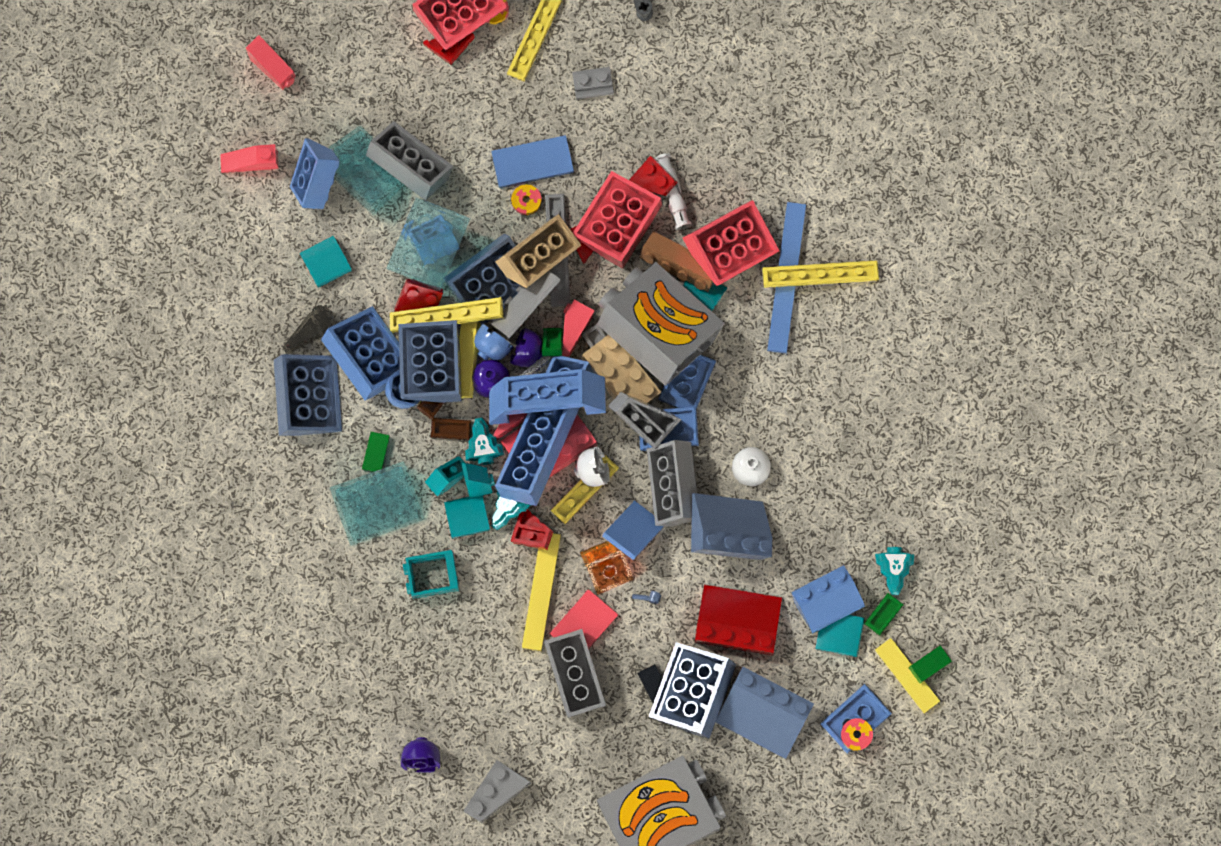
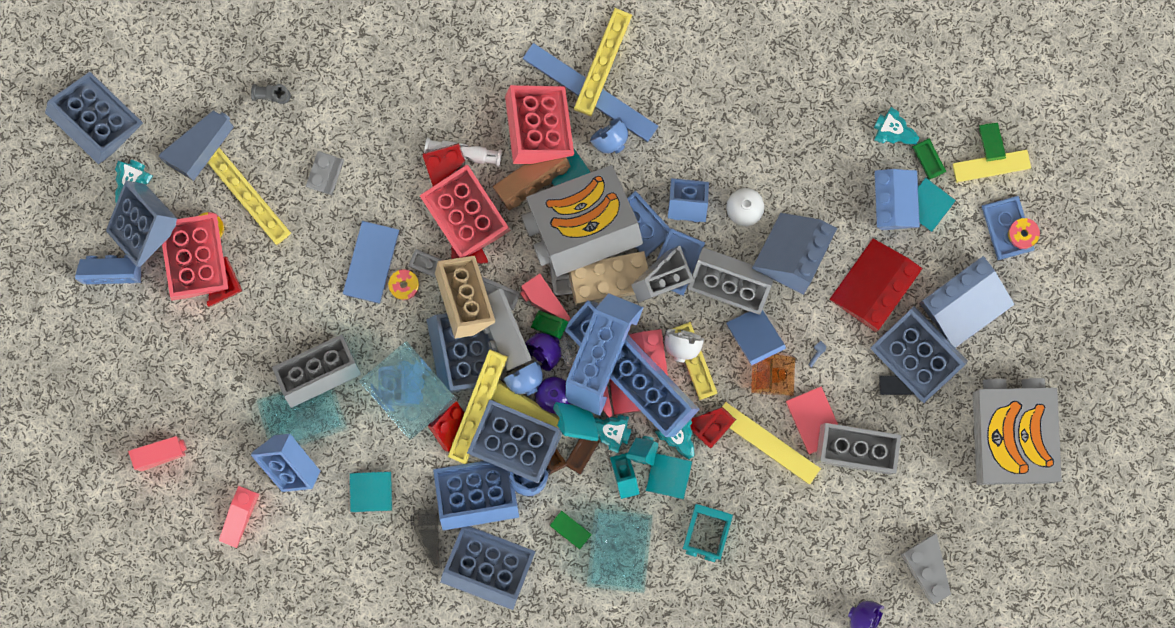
camera: 70 degrees left, 5 degrees up
(473, 406) = (576, 422): none -> teal slope
(730, 411) = (688, 200): none -> medium blue slope
(752, 314) = (611, 137): none -> medium blue cylinder

